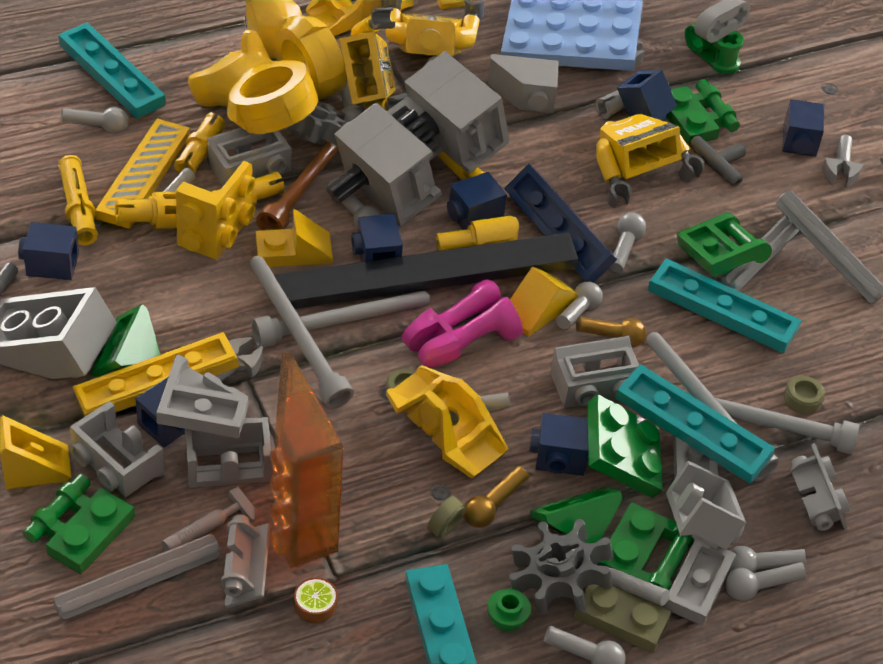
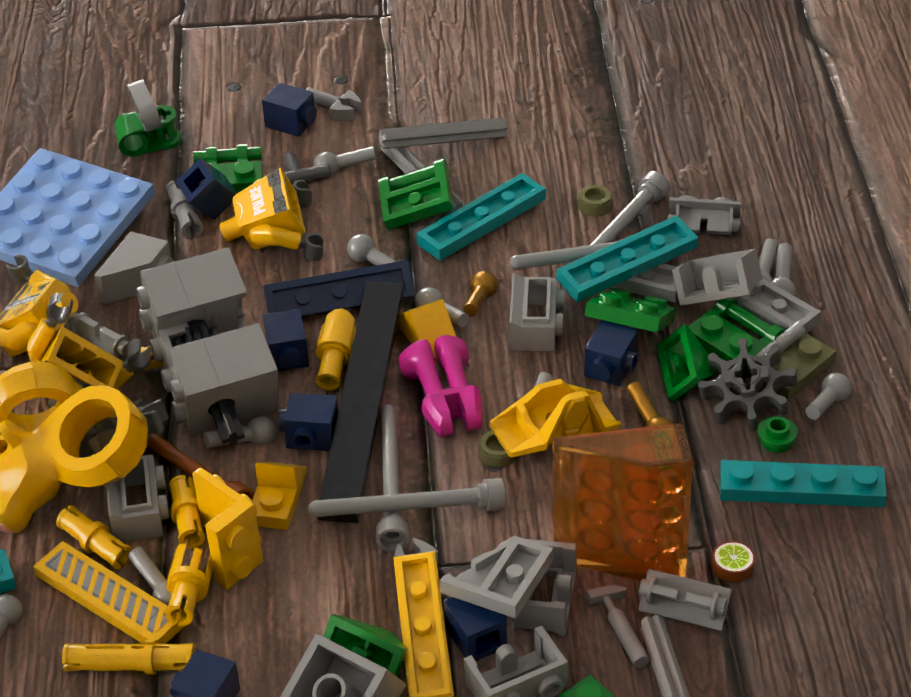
camera: 65 degrees left, 5 degrees down
(753, 181) = (344, 160): none -> light grey bar

